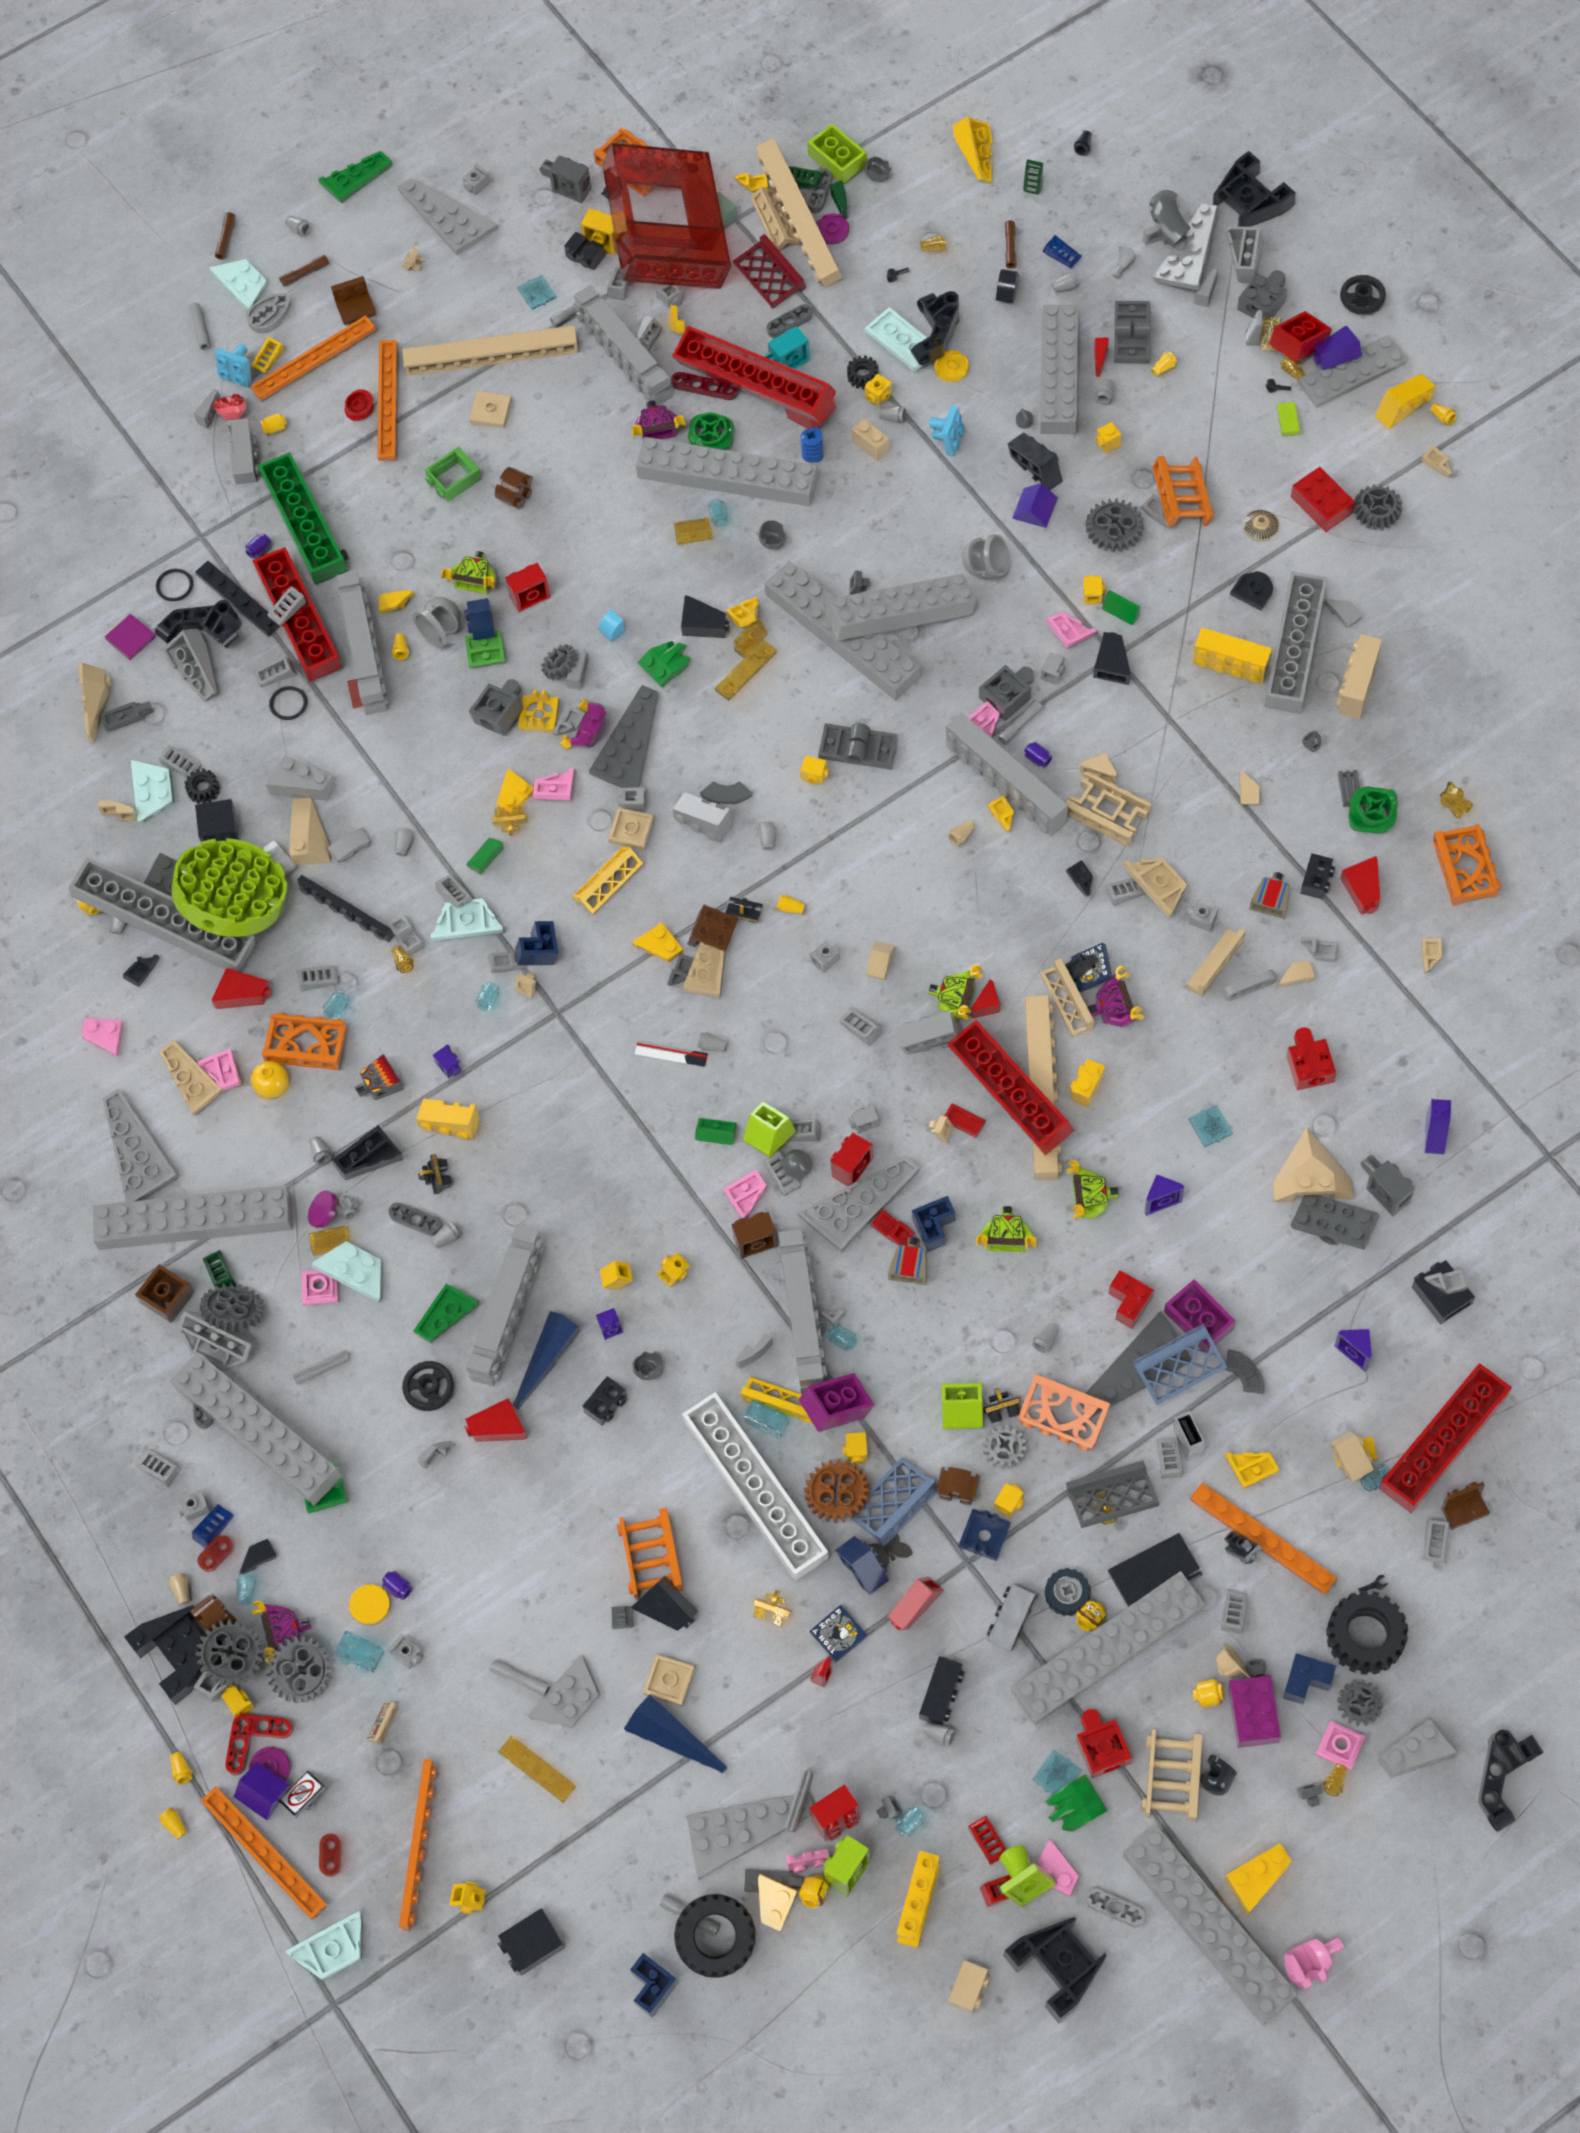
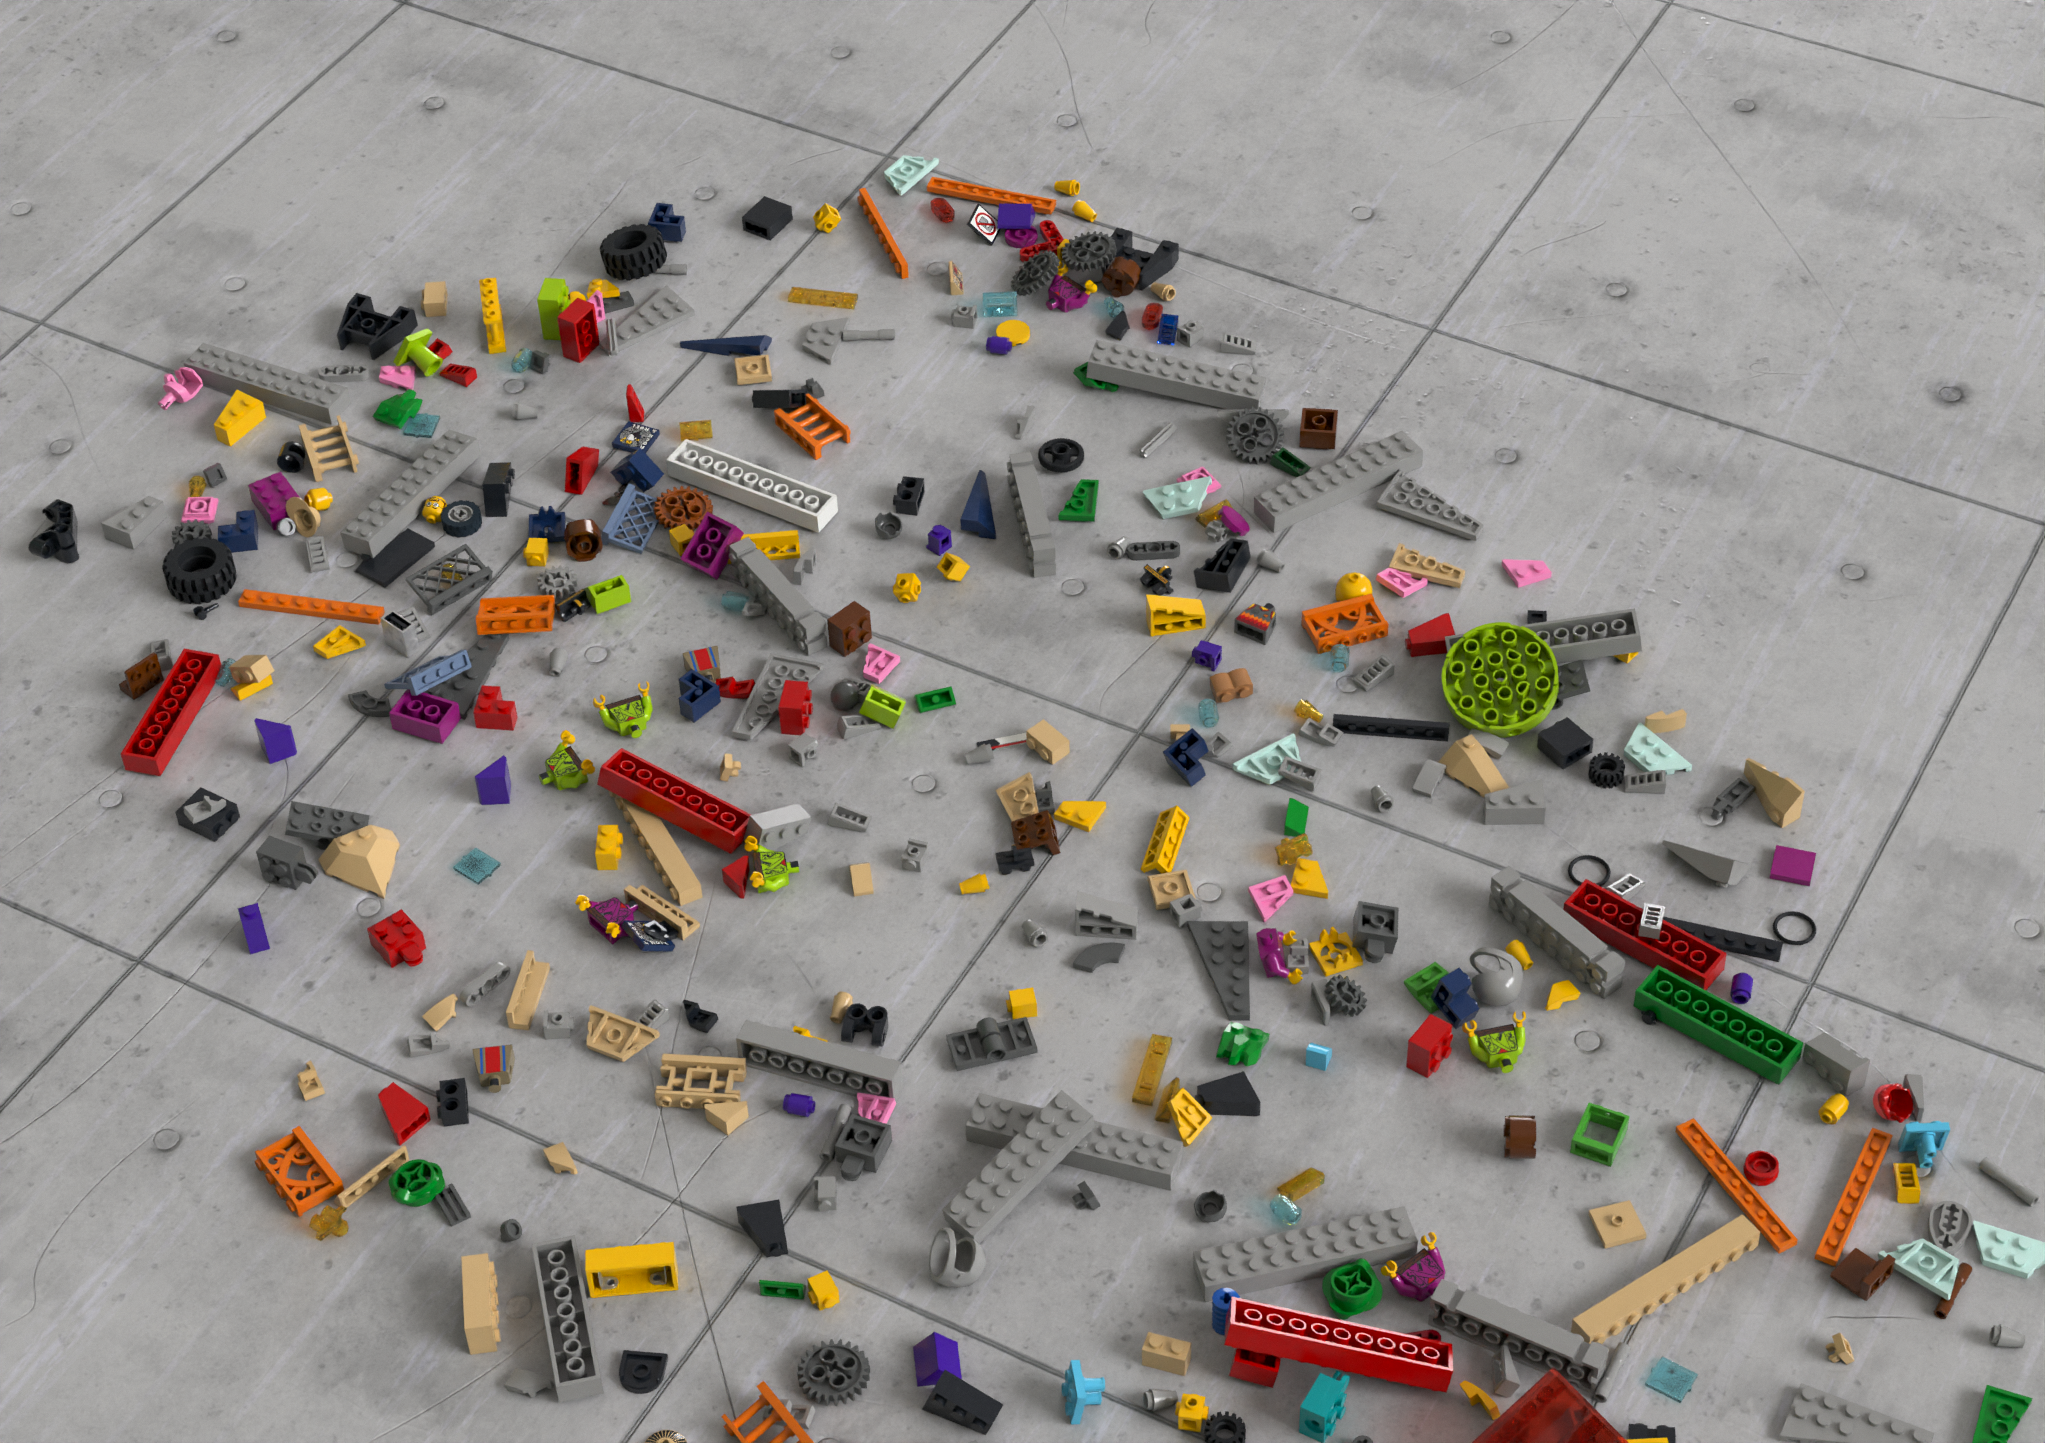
camera: 150 degrees right, 20 degrees down
(219, 622) = (1721, 896): black connector -> none
(308, 289) = (1926, 1265): none -> light aqua wing
(449, 1017) = (1231, 685): none -> medium nougat brick
(495, 1424) = (987, 453): red slope -> none
(645, 1026) = (1047, 742): none -> tan brick
(766, 1419) = (766, 524): clear light blue brick -> none
(940, 797) = (860, 1019): none -> black piece
(941, 1691) = (534, 431): black brick -> none
(965, 1120) = (714, 785): red tile -> none
(1068, 629) = (828, 1242): bright pink wing -> none
(1100, 1744) = (390, 440): red brick -> none
(1241, 1547) = (324, 585): black hips -> none
(1406, 837) = (372, 1178): none -> tan slope

